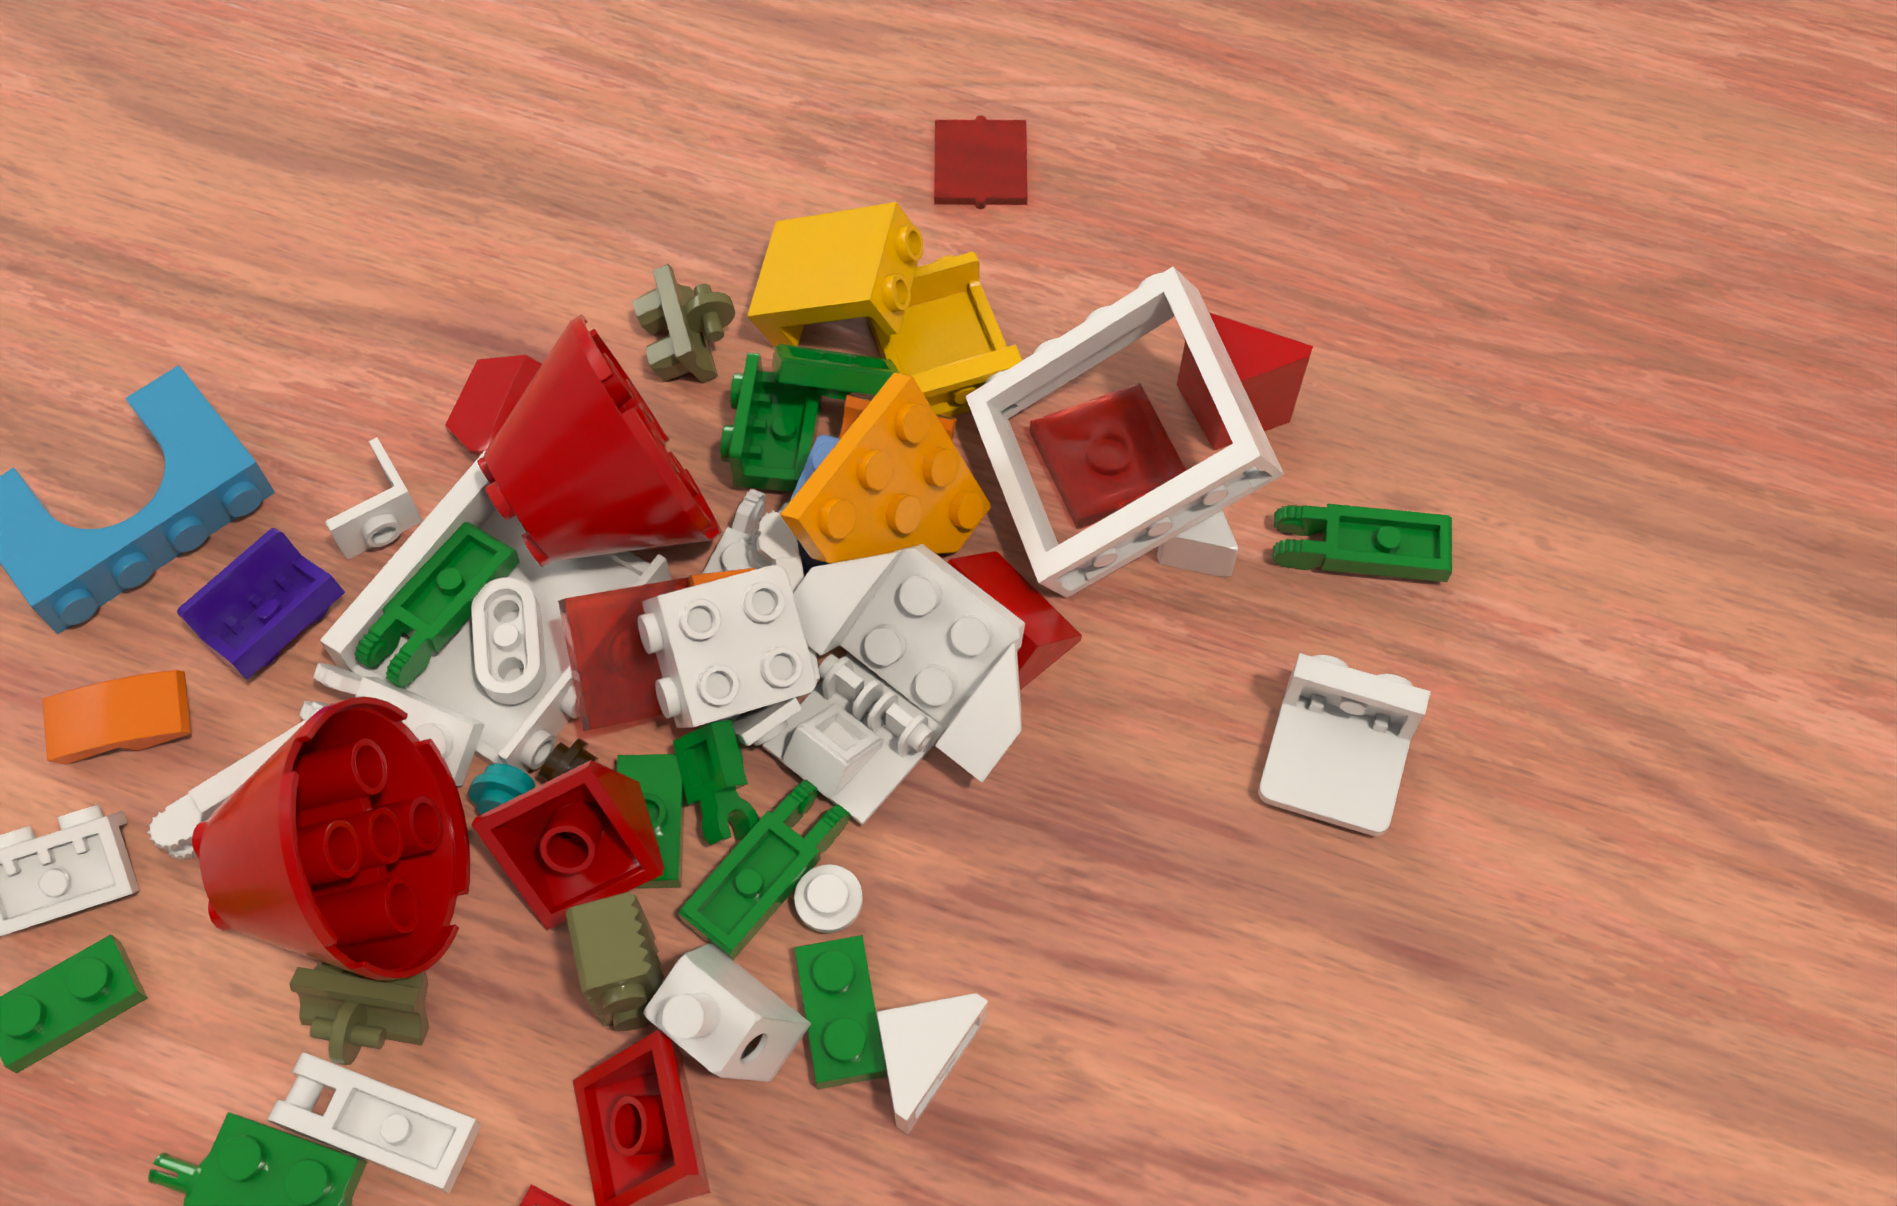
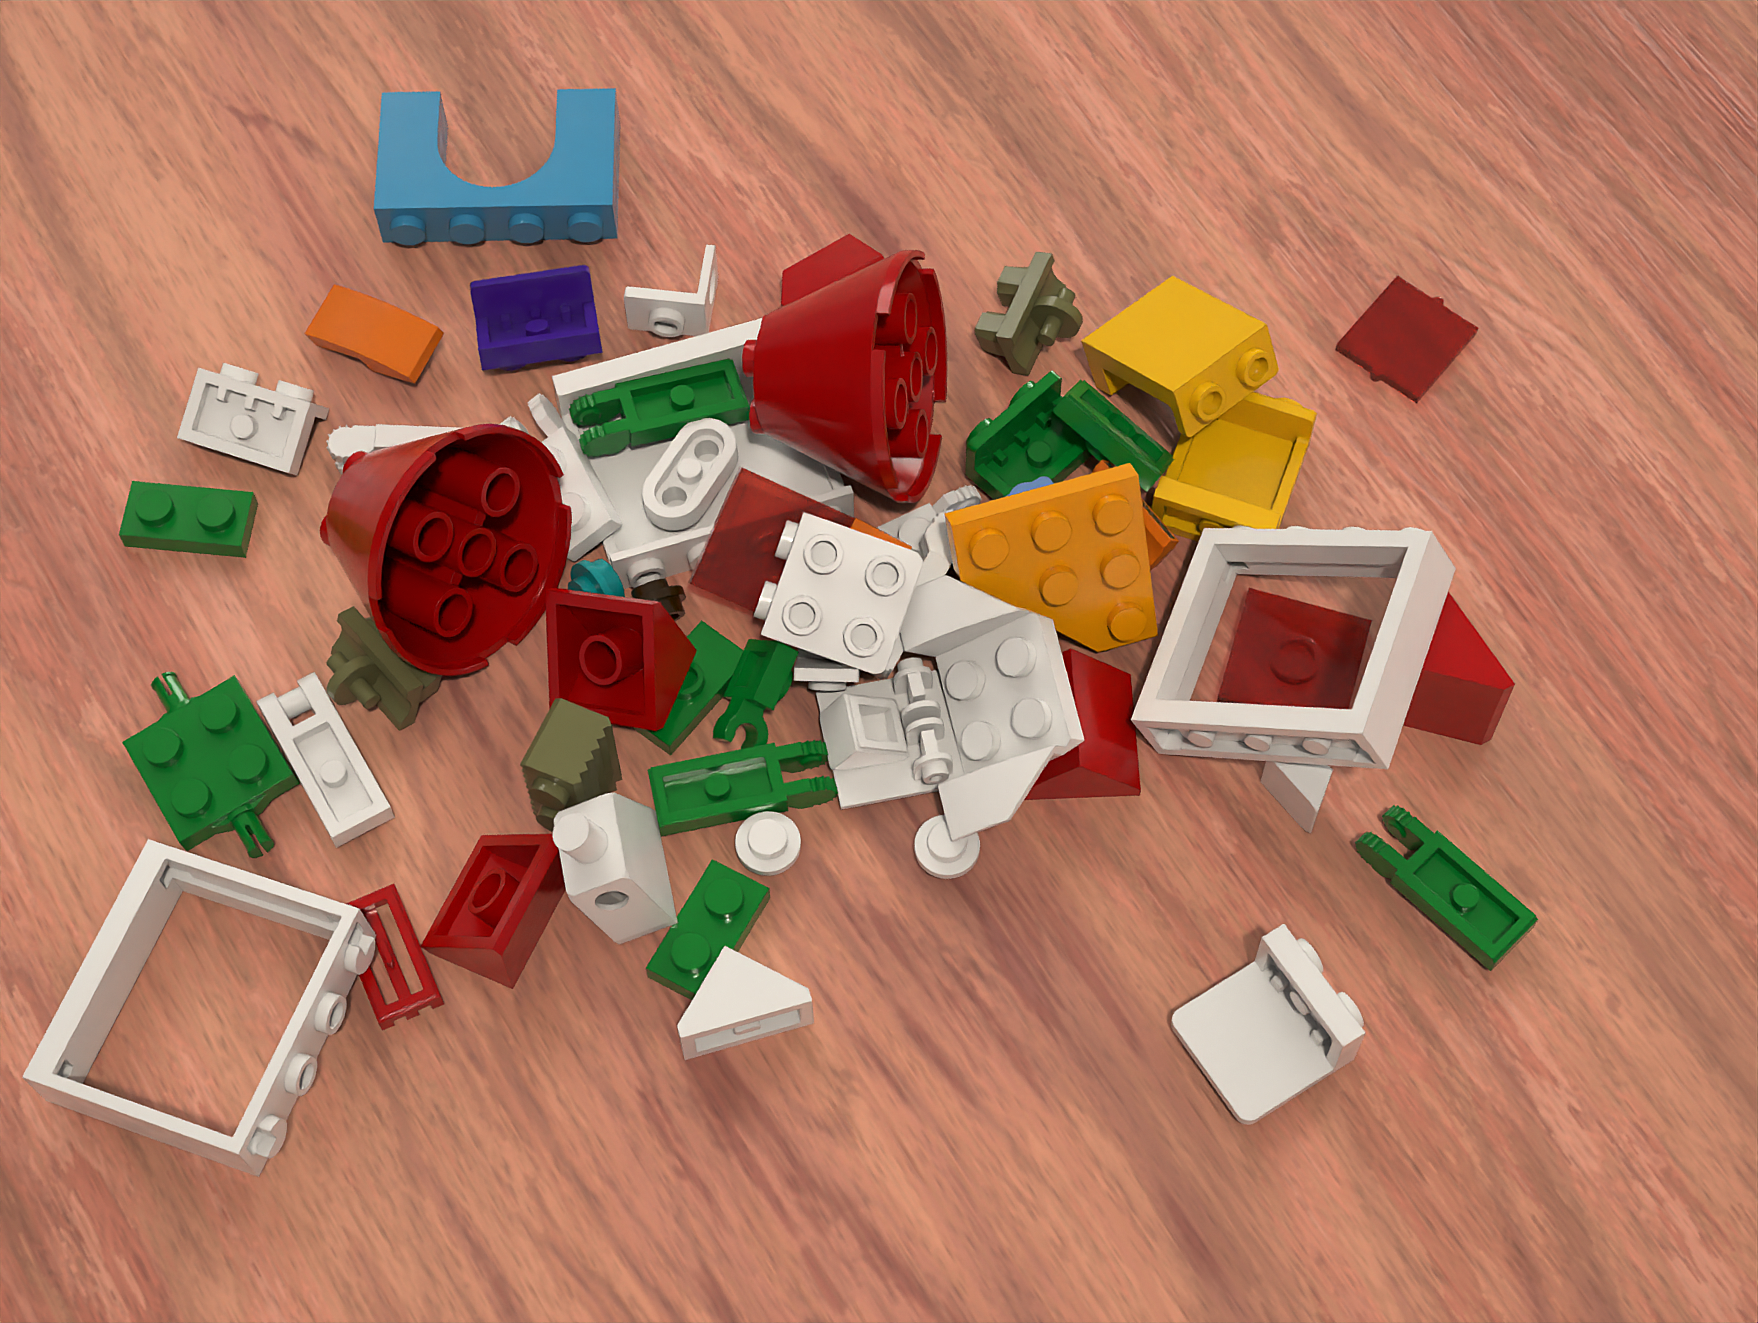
camera: 40 degrees right, 0 degrees up
(974, 800) = (941, 855): none -> white plate

